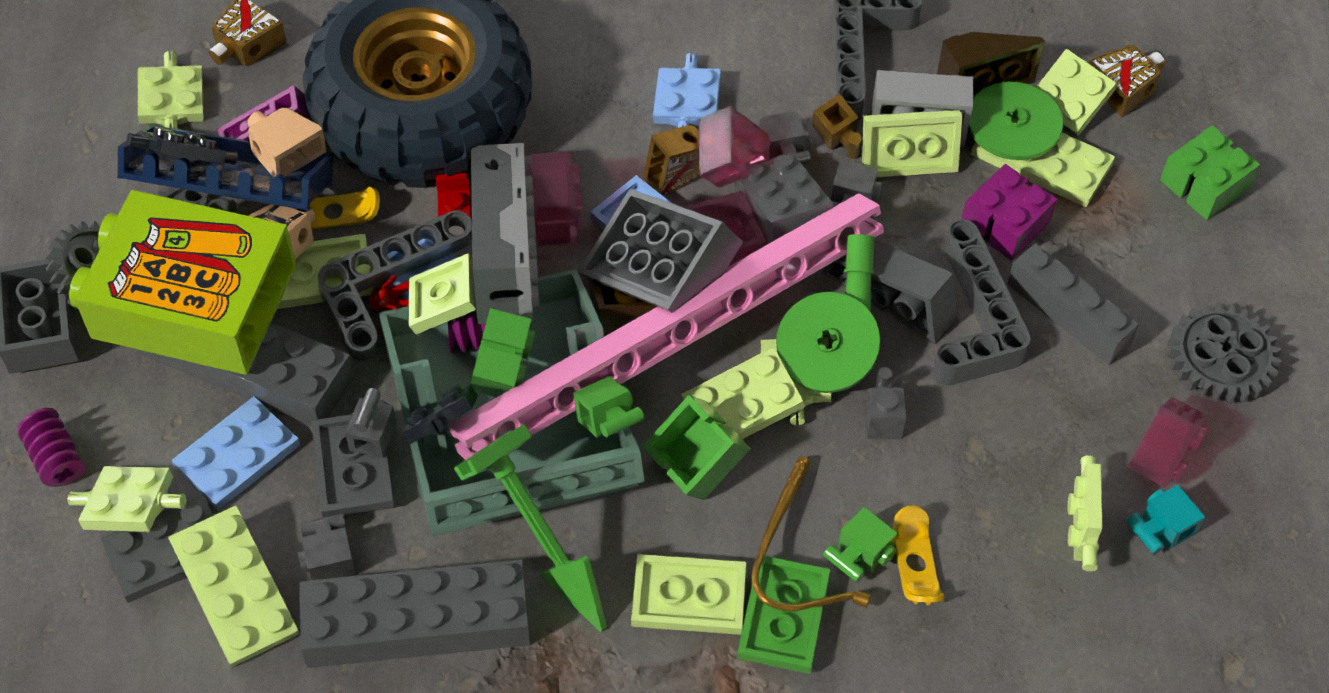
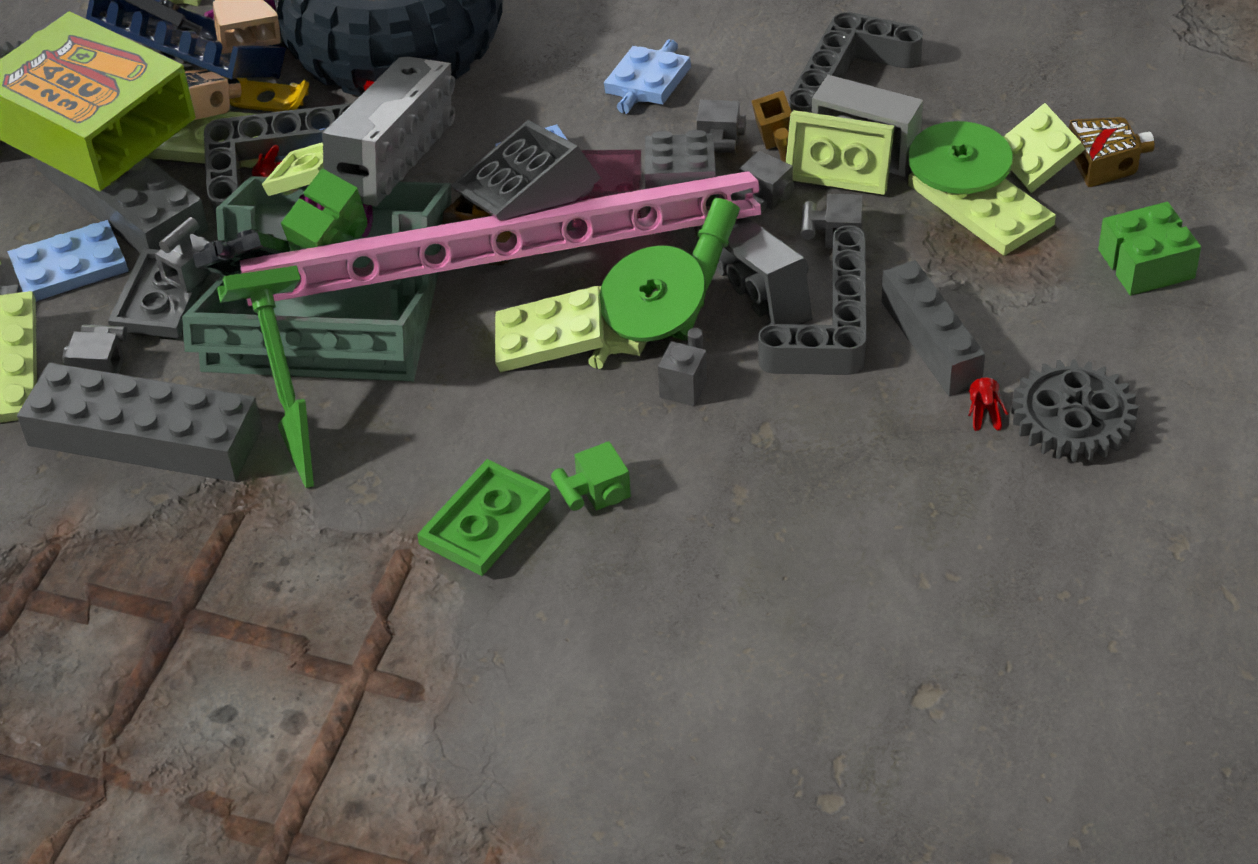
camera: 25 degrees right, 10 degrees down
(556, 198) = (464, 121): clear pink piece -> none
(606, 407) = (396, 285): bright green brick -> none
(672, 159) = (603, 116): pearl gold torso -> none
(688, 594) = (402, 475): yellowish green plate -> none
(698, 444) = (473, 350): bright green piece -> none
(730, 146) = (650, 106): clear pink brick -> none
(789, 492) = (543, 422): pearl gold piece -> none
(913, 539) = (650, 487): yellow piece -> none
(937, 211) = (840, 211): none -> flat silver brick
(991, 58) = (962, 95): dark brown slope -> none
(1017, 210) = (911, 230): magenta piece -> none
(1087, 513) = (834, 503): yellowish green plate -> none
(1146, 358) = (985, 394): none -> red piece
(1168, 440) = (959, 463): clear pink brick -> none
(1169, 517) = (929, 538): teal brick -> none

